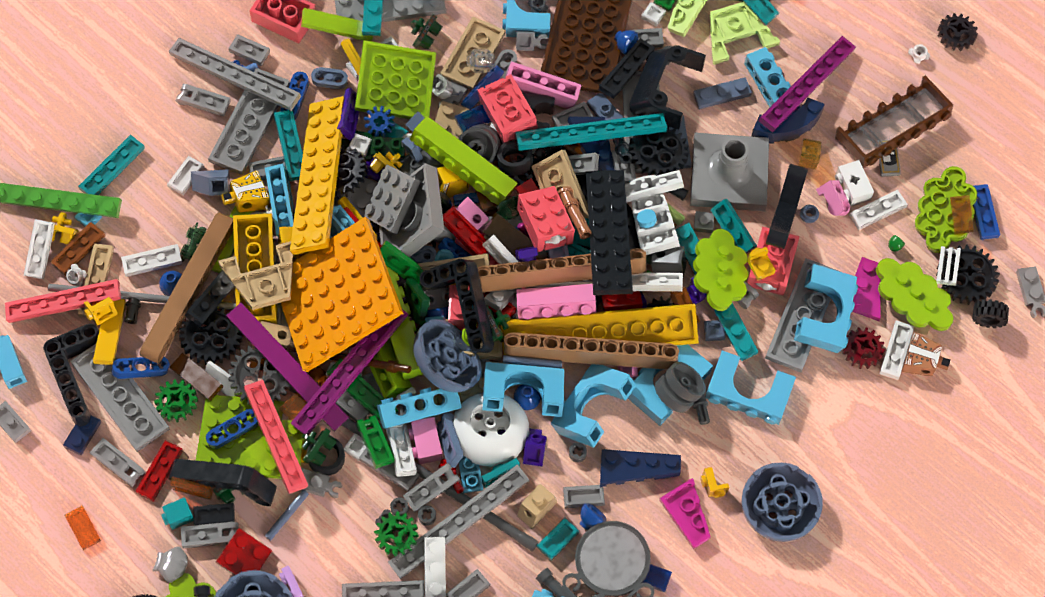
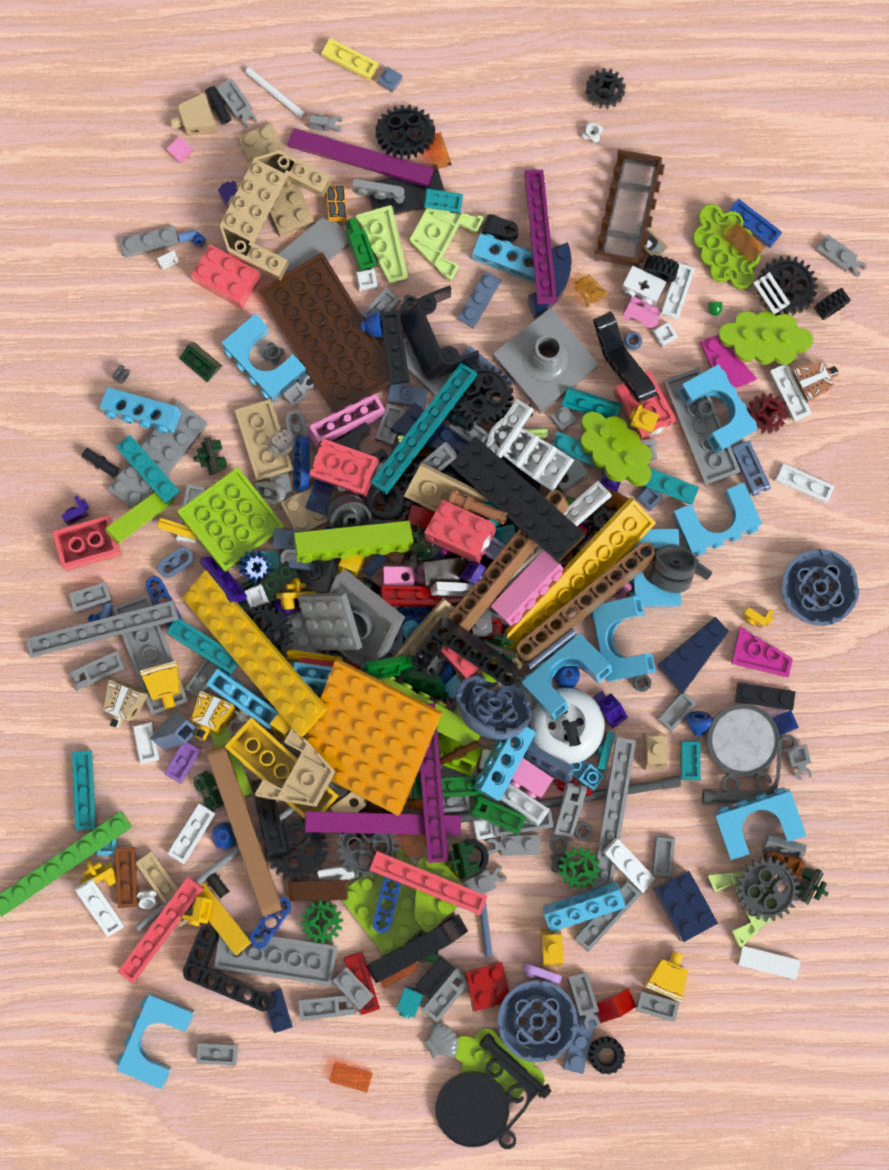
camera: 45 degrees left, 15 degrees up
(148, 464) = (352, 988): none -> light grey plate
(196, 208) = (182, 762): none -> medium lavender plate
(198, 132) = (123, 701): none -> tan torso
(238, 142) = (163, 682): none -> yellow torso
(317, 573) = (551, 948): none -> yellow torso
(368, 480) = (517, 845): none -> light grey plate
(371, 563) = (583, 906): none -> medium azure brick
(486, 428) = (572, 733): none -> pearl dark grey pin
(646, 218) = (530, 460): medium azure tile -> none
(663, 547) = (765, 696): none -> black plate
(785, 59) = (499, 227): none -> black piece
(813, 375) = (751, 468): none -> sand blue plate
(839, 230) = (665, 334): none -> white tile
(845, 424) = (804, 483): none -> white tile
(880, 179) = (661, 267): none -> black tyre

